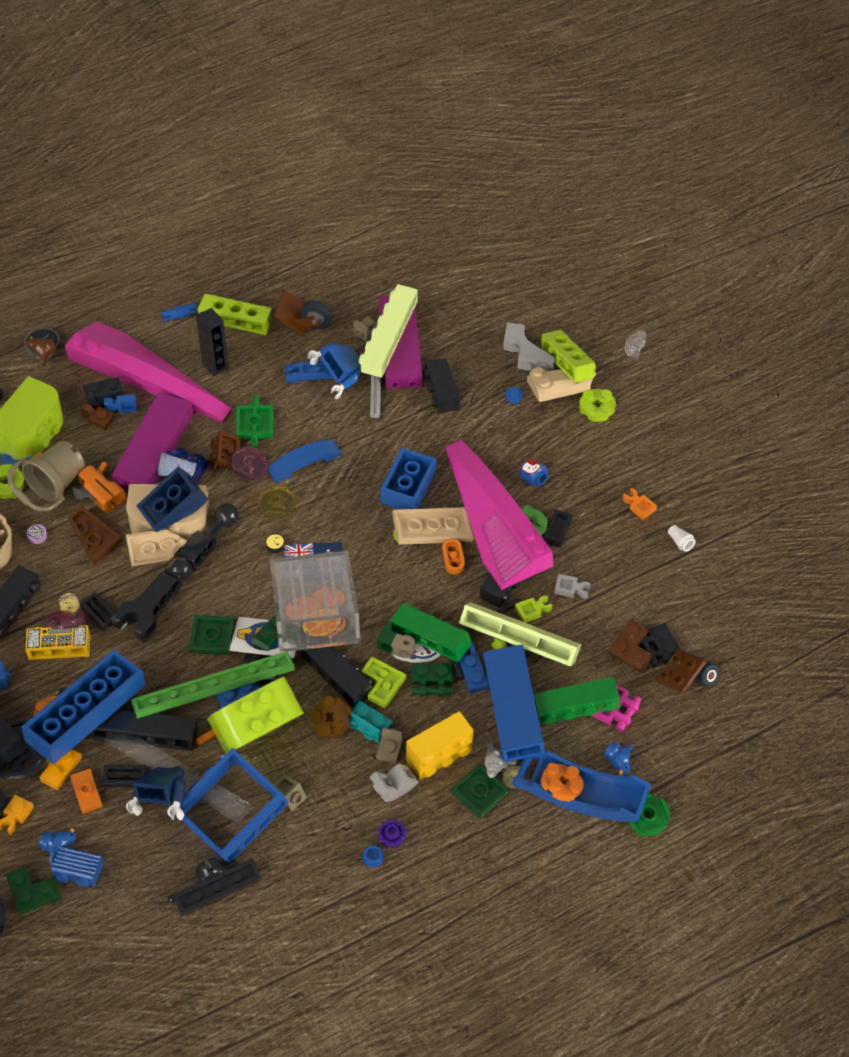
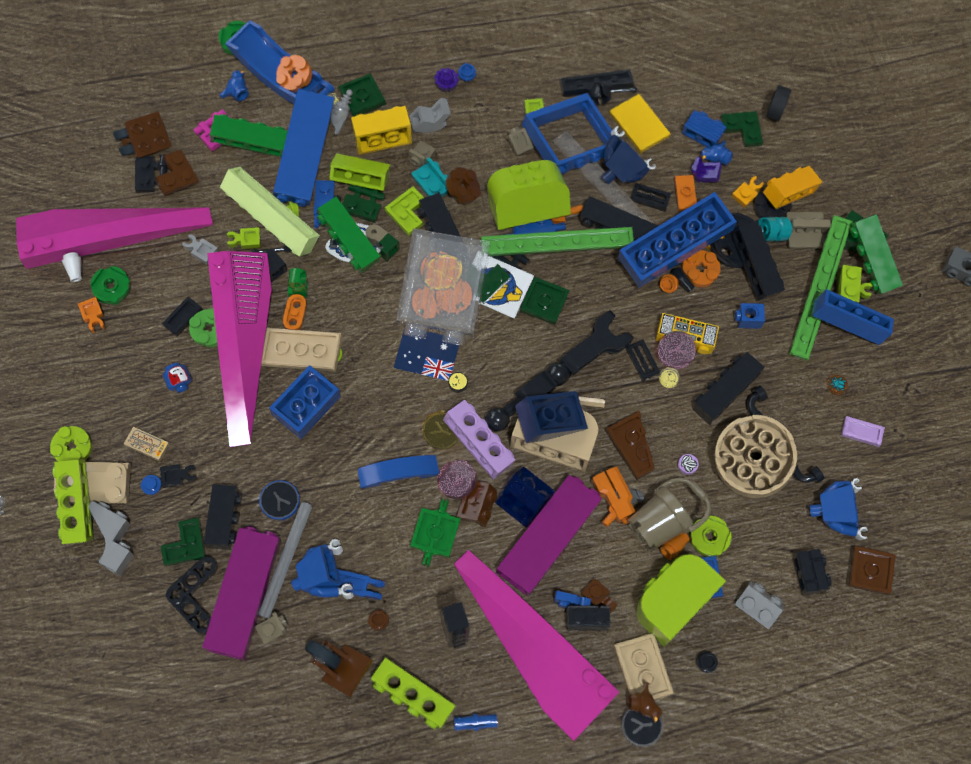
camera: 165 degrees left, 15 degrees up
(51, 374) = (643, 663): none -> tan tile
(66, 818) = (706, 171): none -> dark purple bracket
(155, 857) = (639, 123): none -> yellow tile
(264, 501) = (479, 449): none -> lavender brick
(281, 354) = (378, 620): none -> reddish brown plate
(281, 833) = (533, 105): none -> lime plate
(389, 330) = (251, 591): yellowish green brick -> none
(399, 412) = (279, 500): none -> black tile
(424, 317) = (185, 599): none -> black beam
(445, 701) = (359, 172): none -> lime brick
(460, 360) = (189, 548): none -> dark green plate
(460, 576) = (298, 282): none -> green leg
(497, 404) = (174, 475): none -> black plate
(534, 422) = (146, 444): none -> tan tile
(637, 542) = (118, 292): none -> green plate
(700, 566) = (53, 233): none -> dark pink wedge

